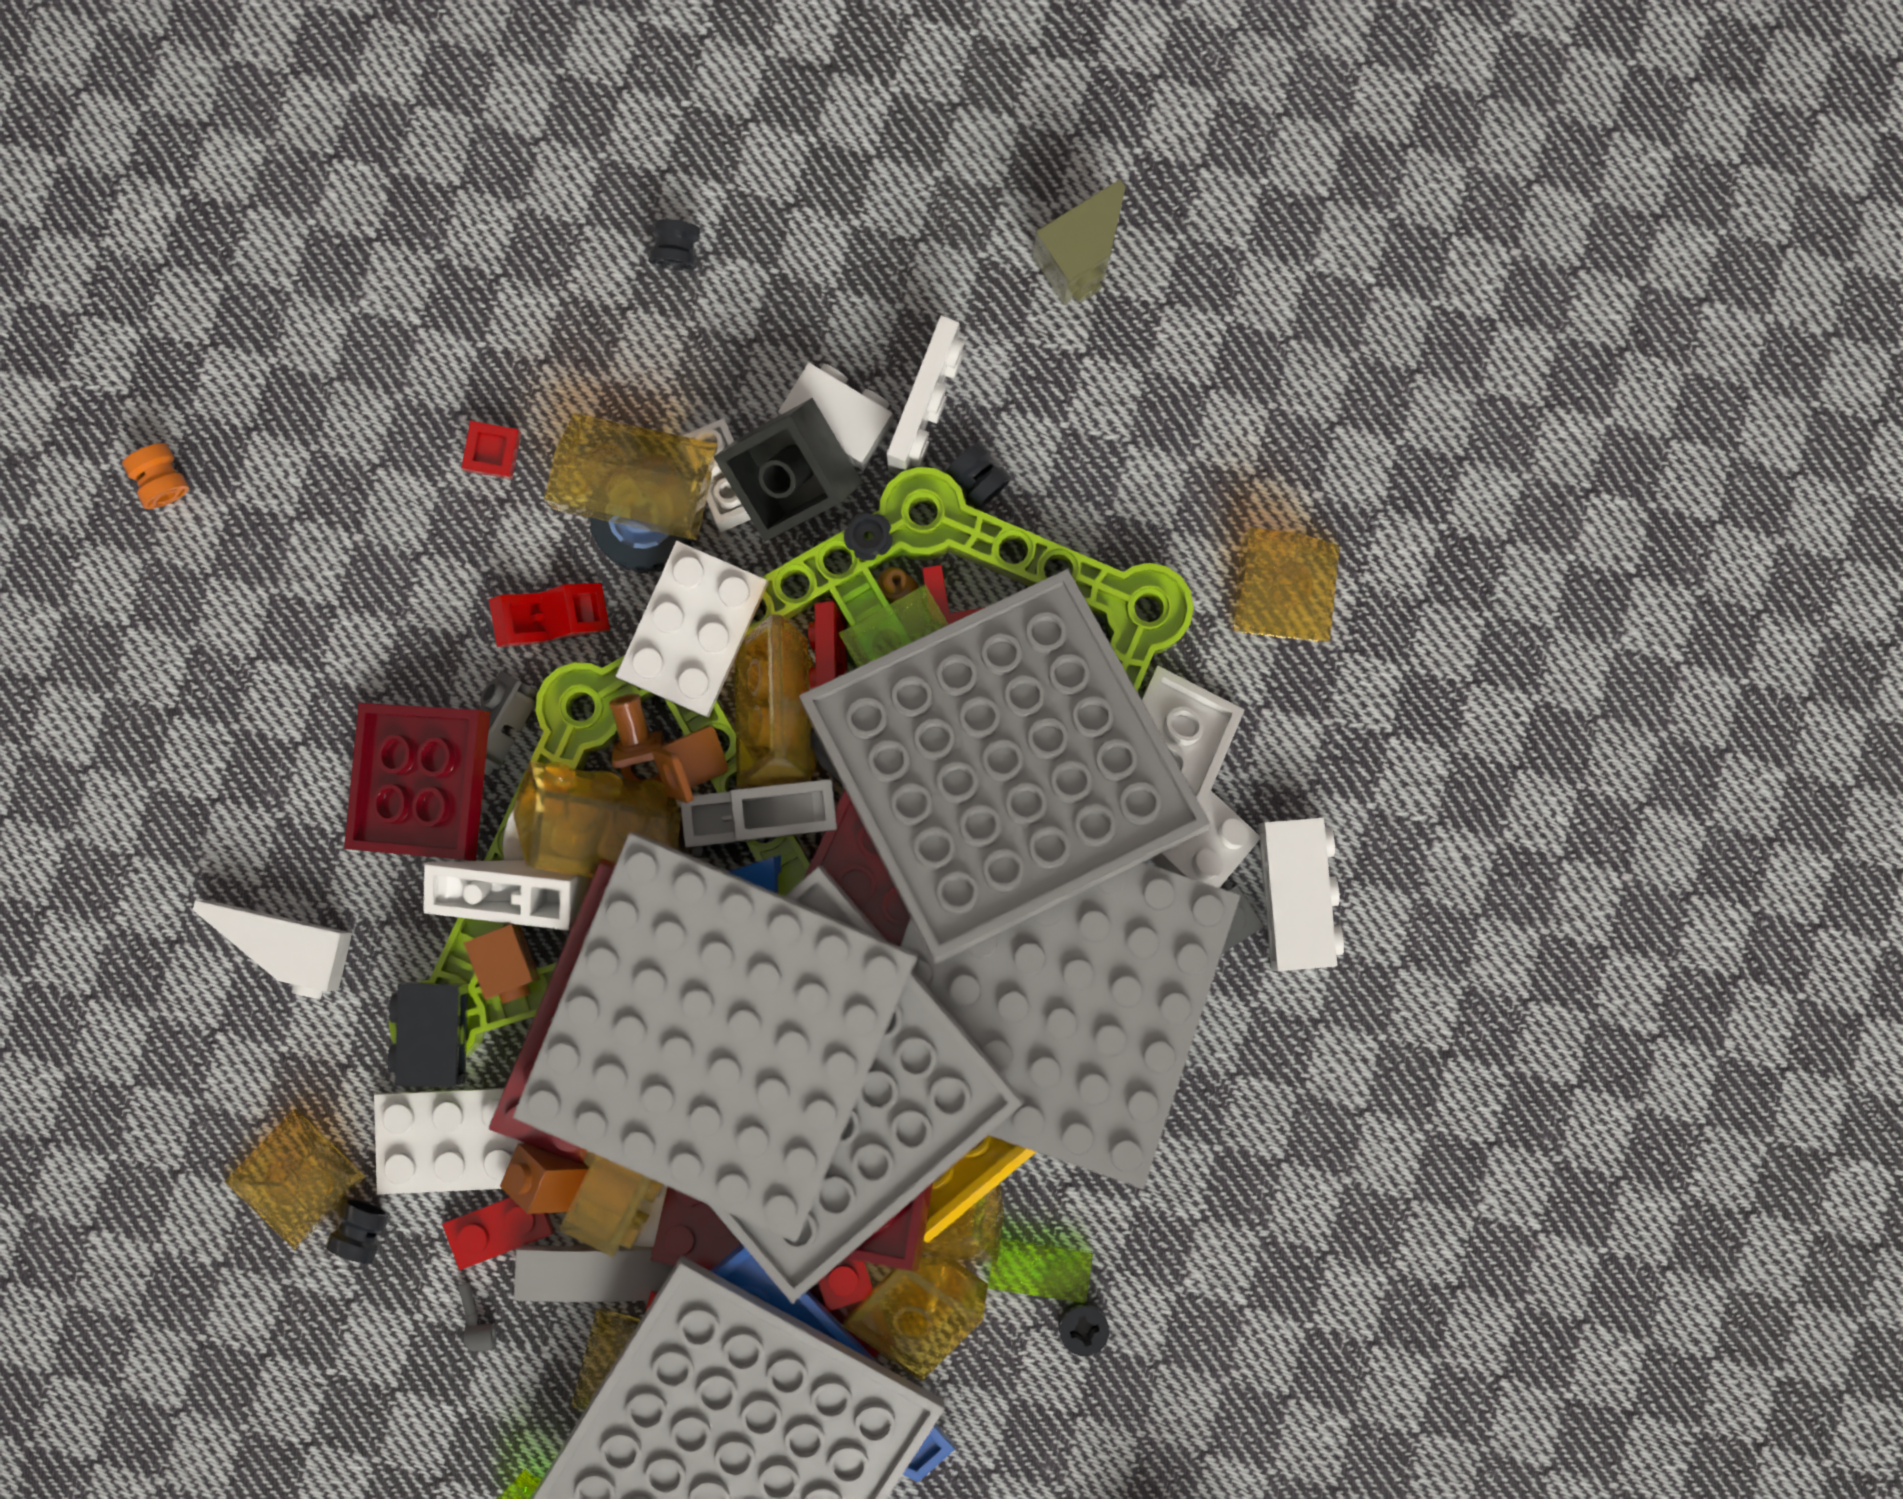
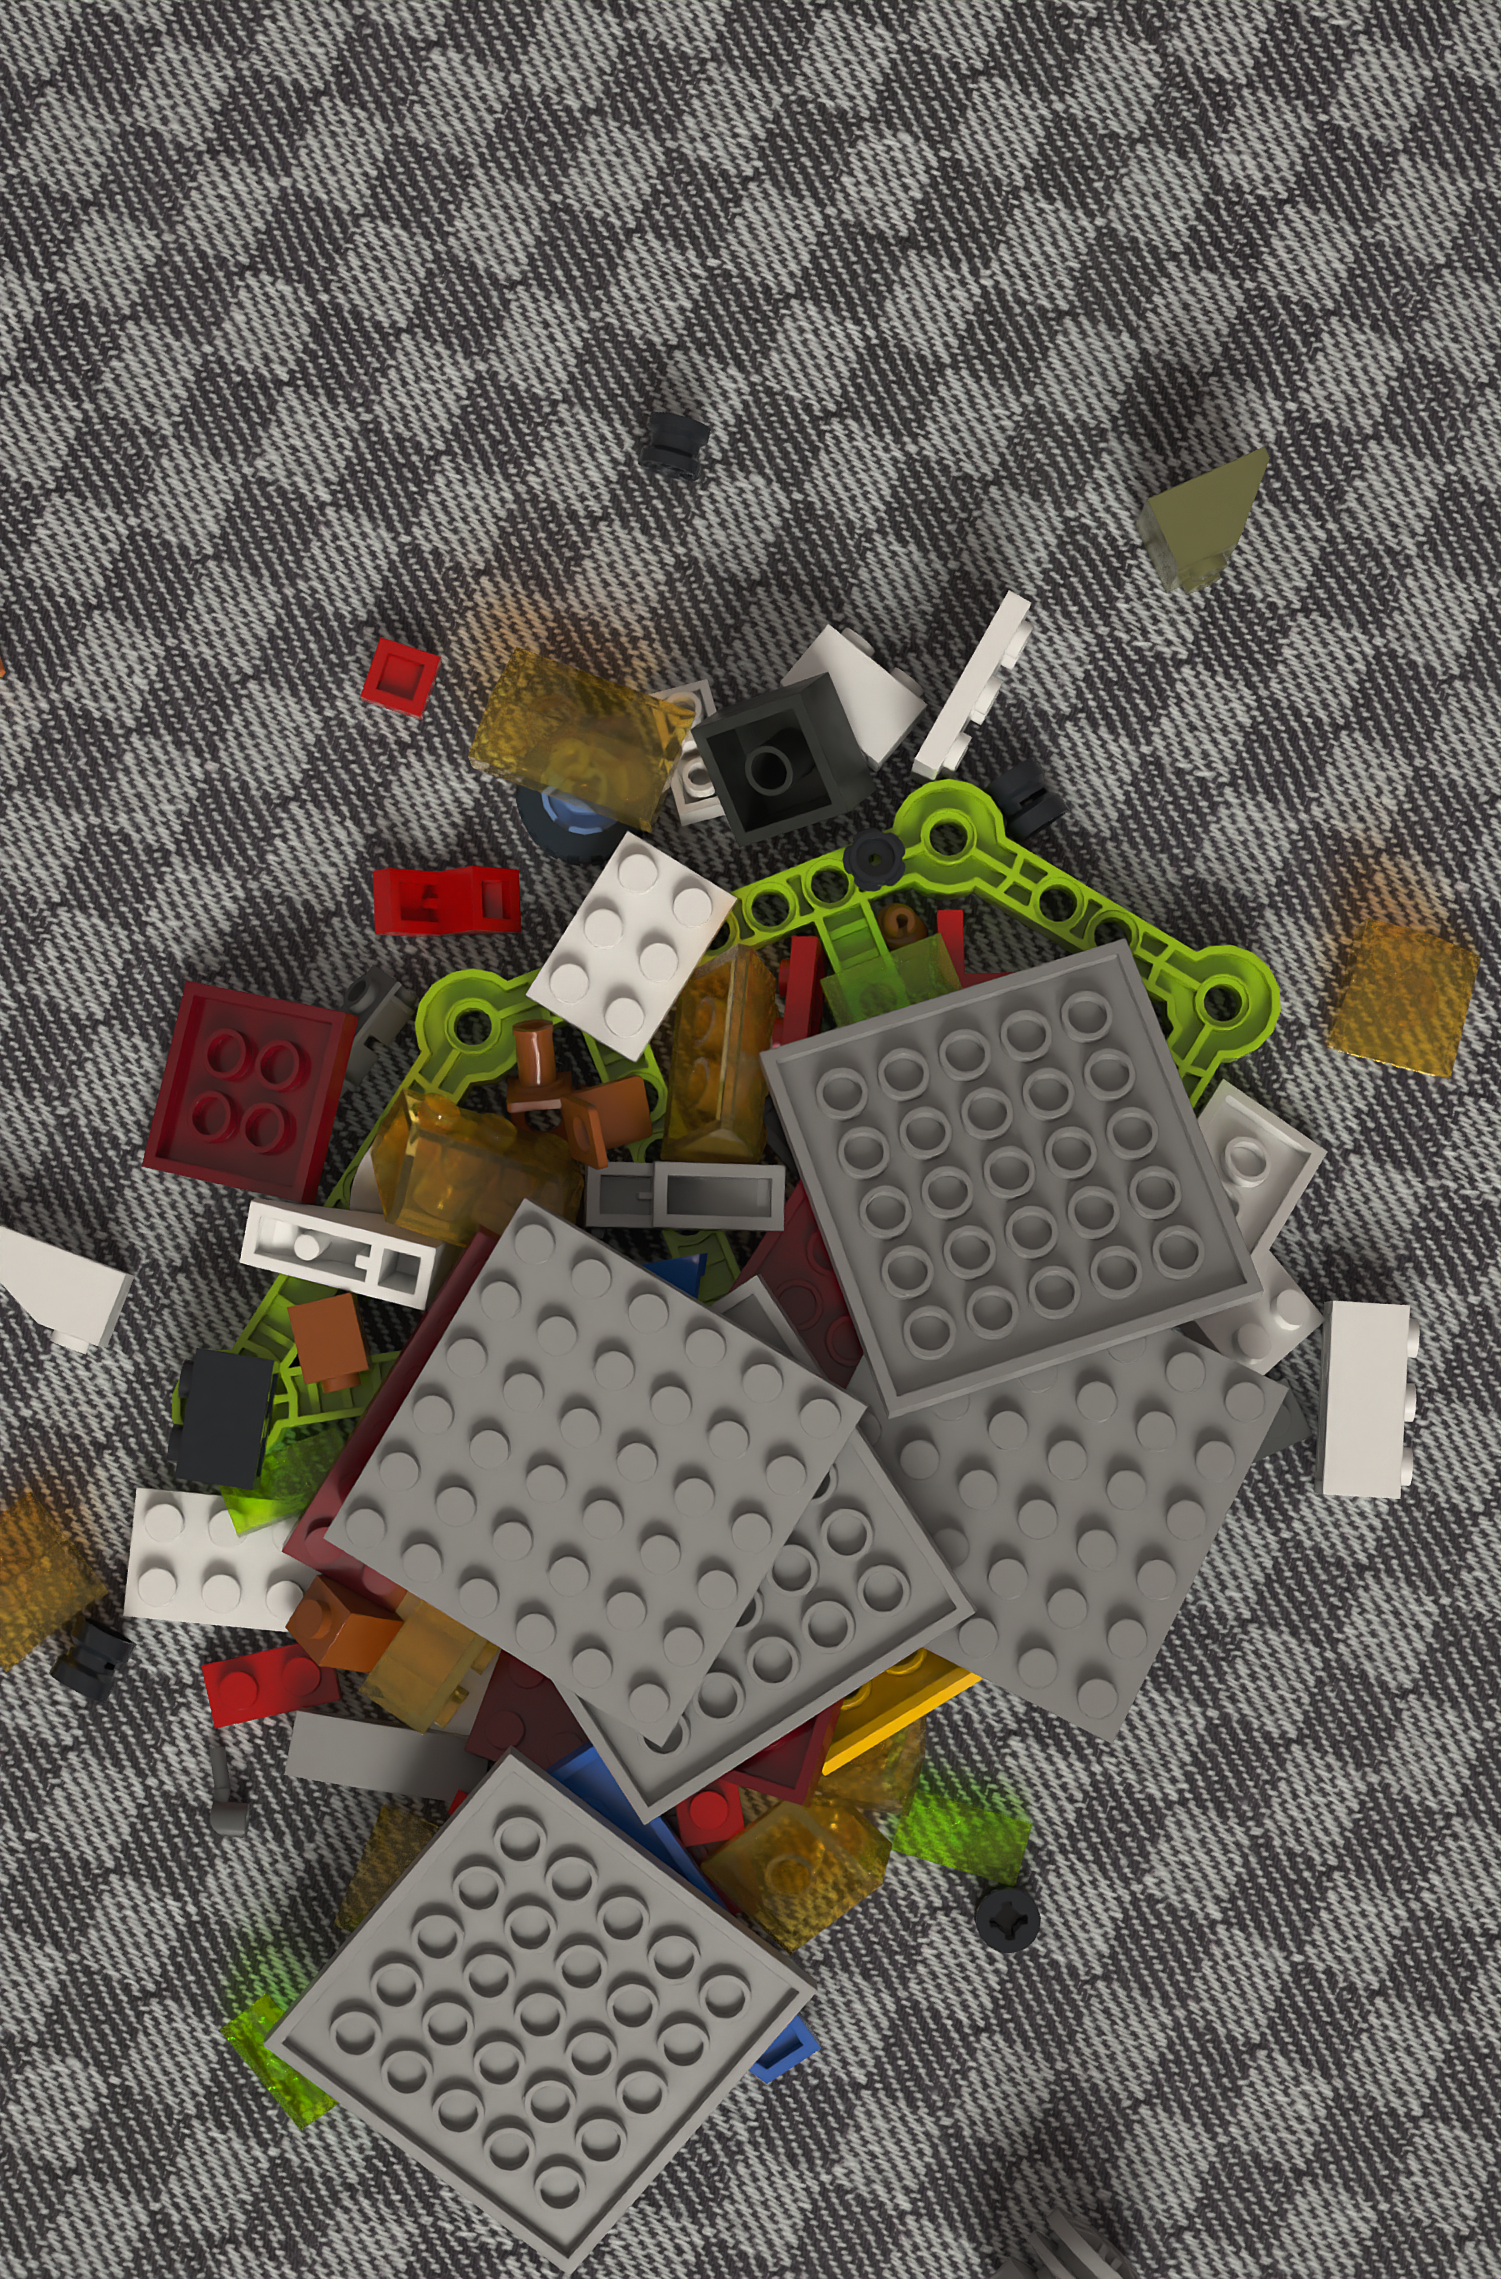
camera: 10 degrees right, 0 degrees up
(485, 1076) = (286, 1483): none -> clear neon green plate

